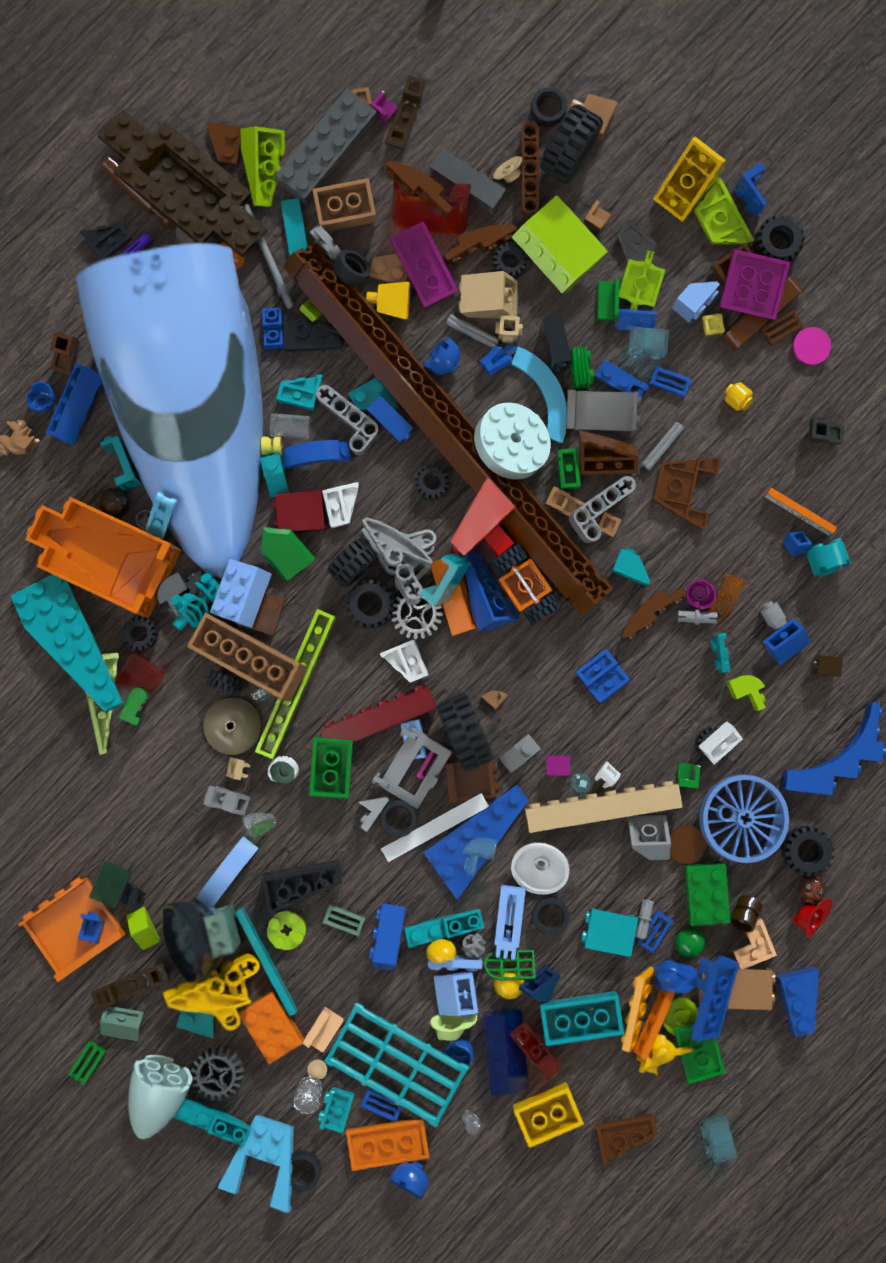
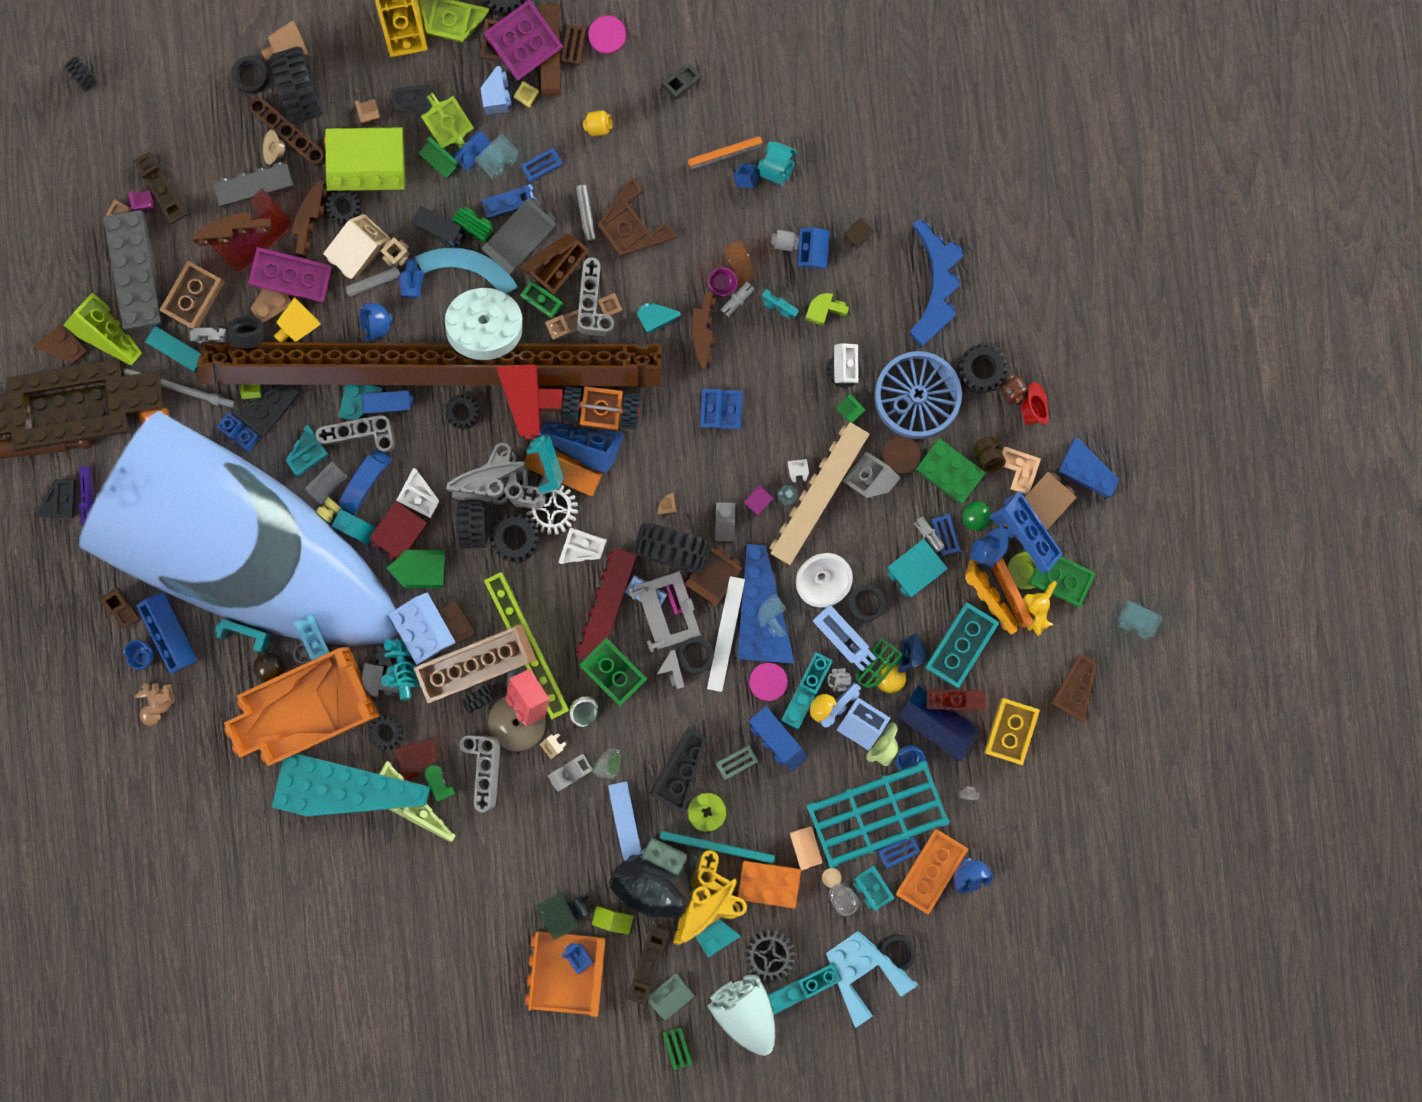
camera: 45 degrees left, 0 degrees up
(171, 732) = (481, 771): none -> light grey beam
(255, 719) = (527, 698): none -> coral brick
(426, 891) = (768, 681): none -> dark pink tile

